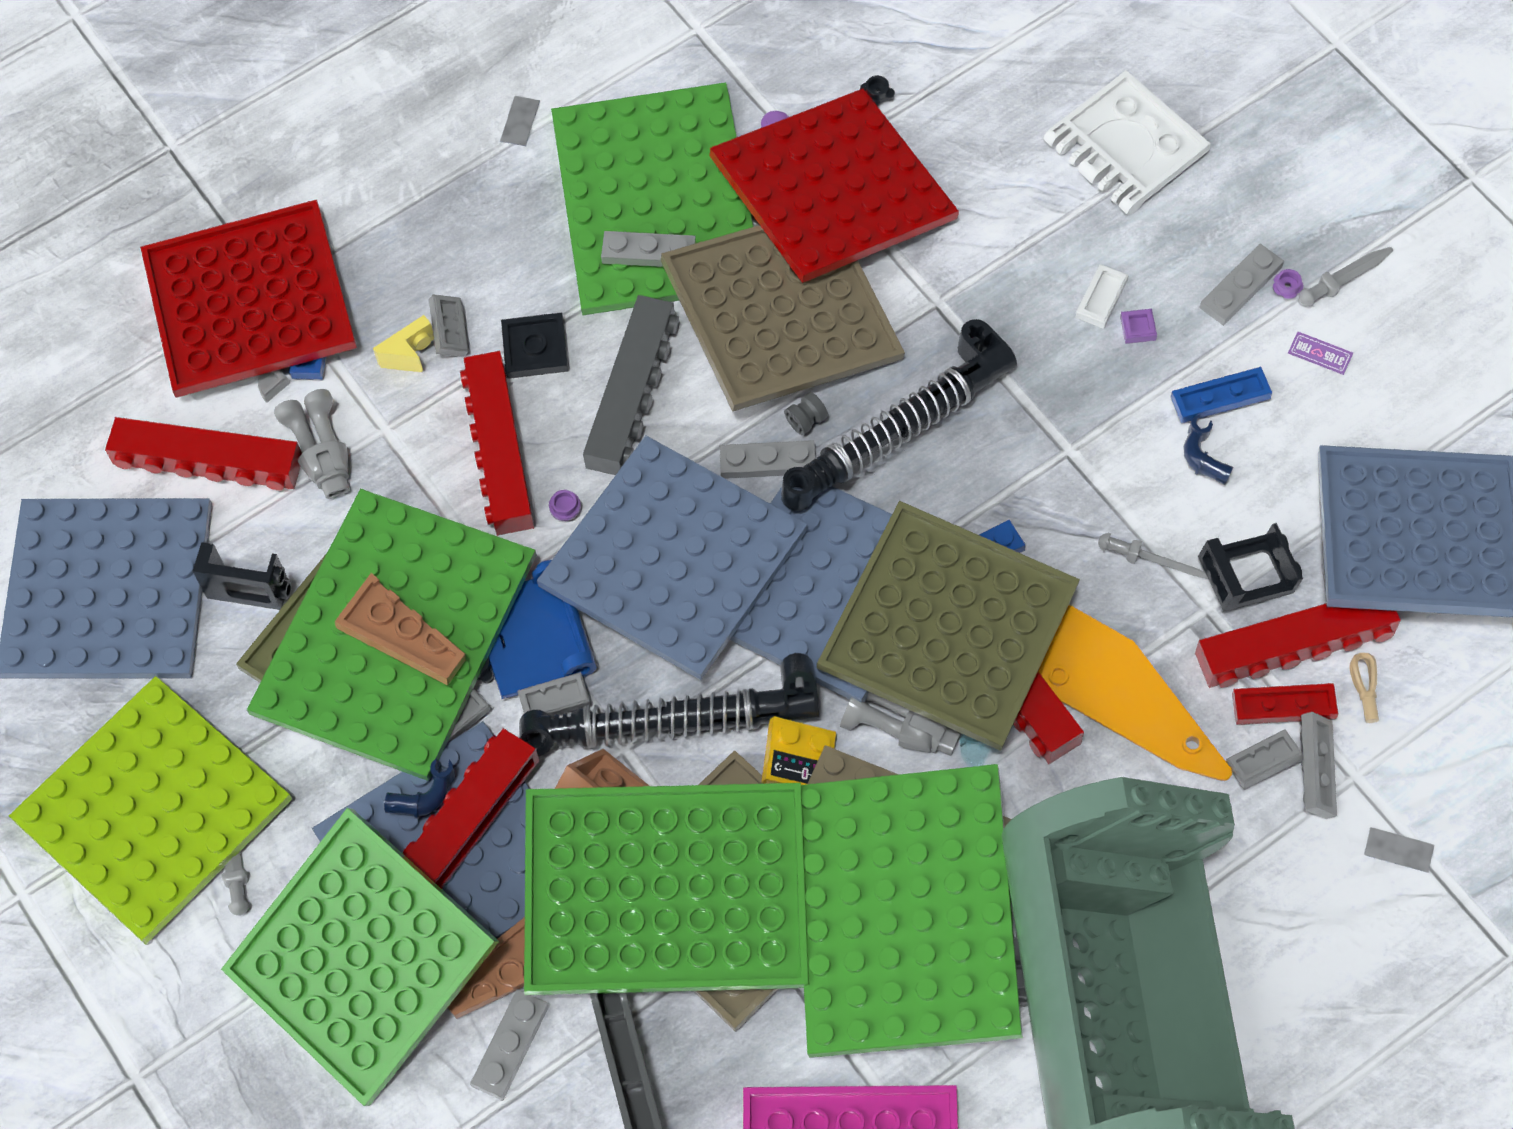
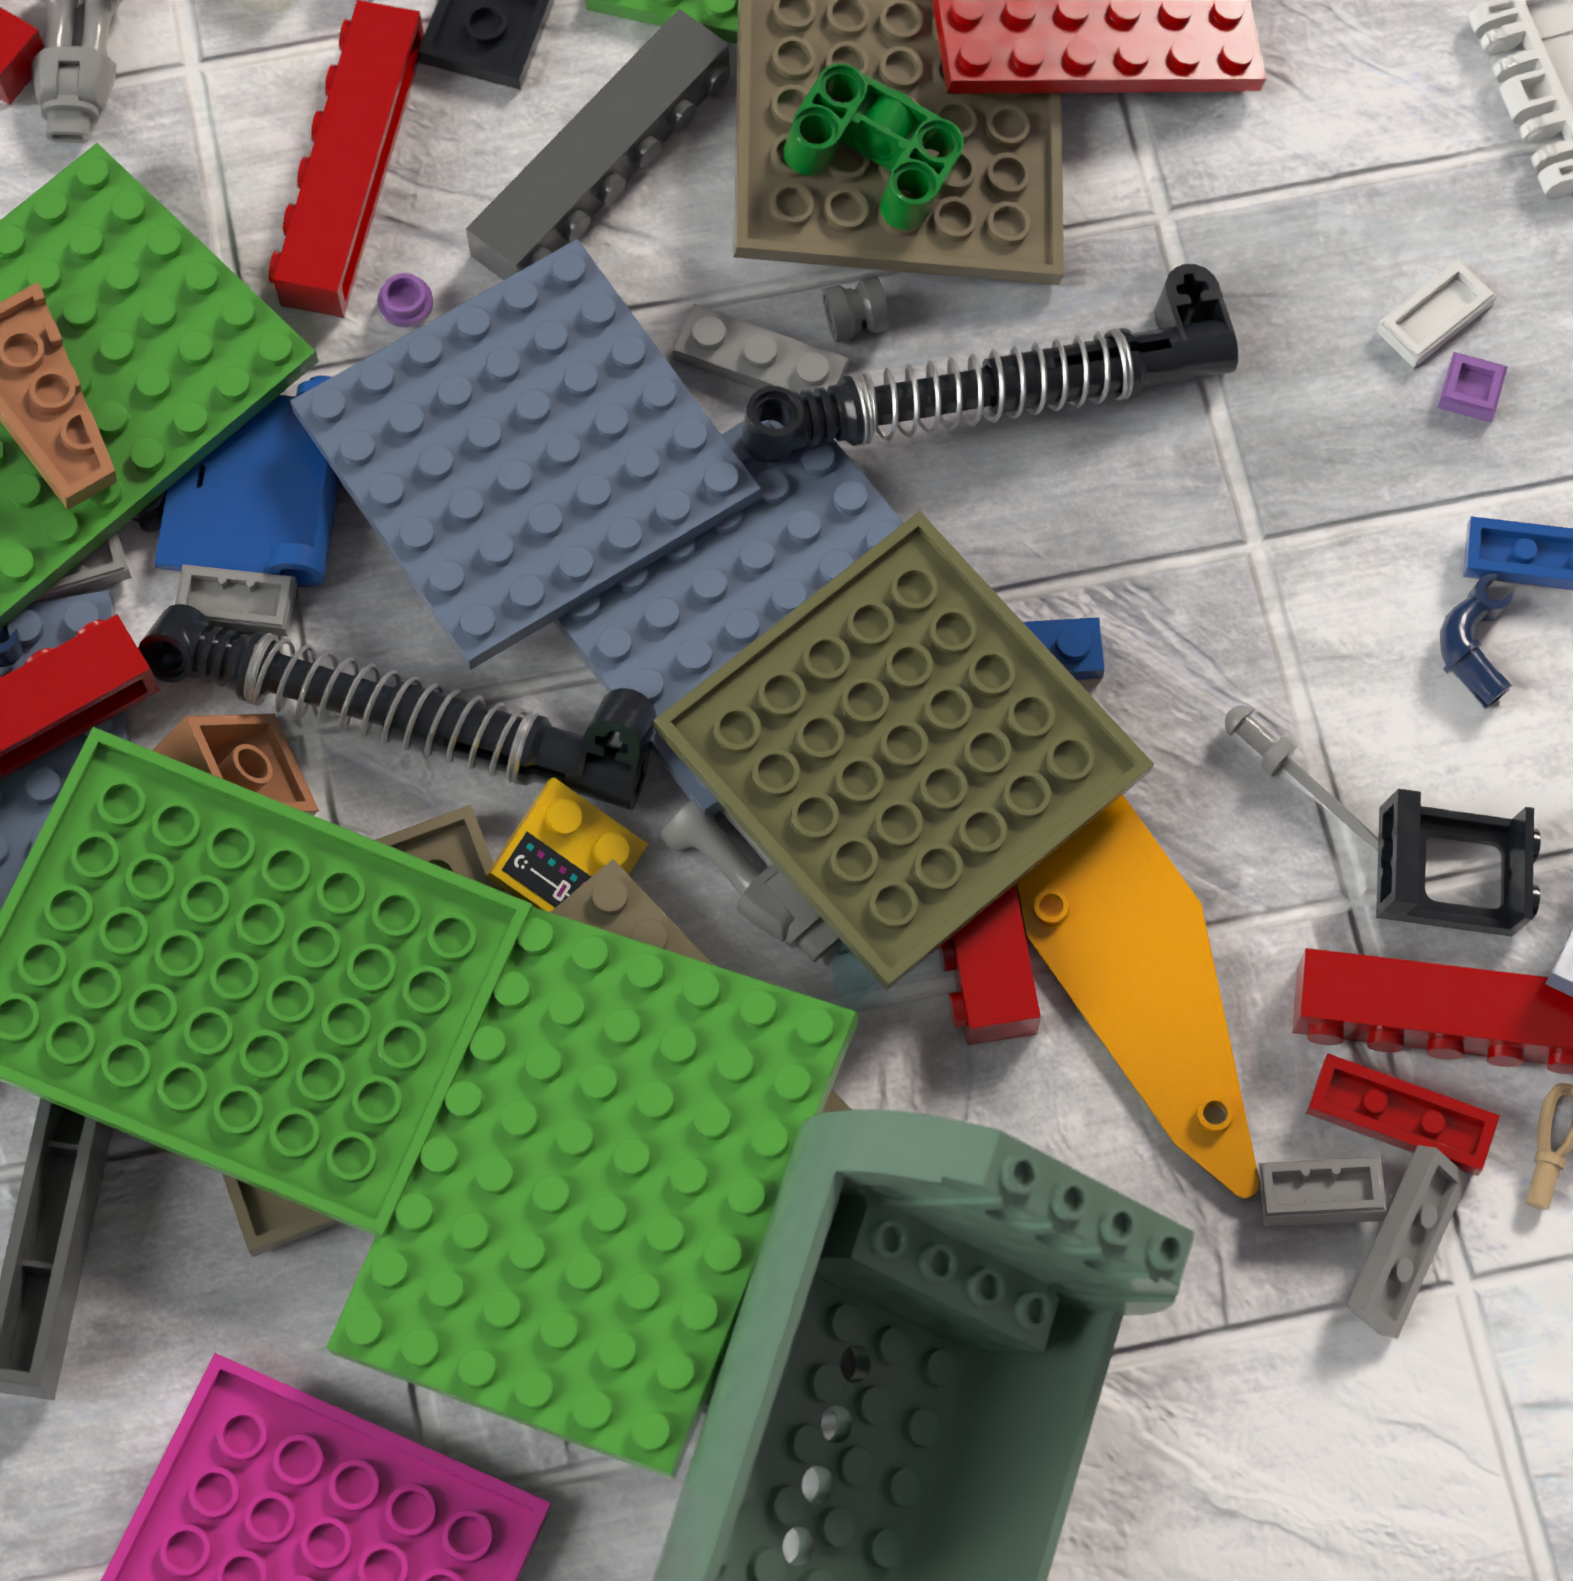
camera: 20 degrees right, 5 degrees up
(780, 314) = (882, 128): none -> green beam
(1399, 849) = (1476, 1440): flat silver sticker -> none

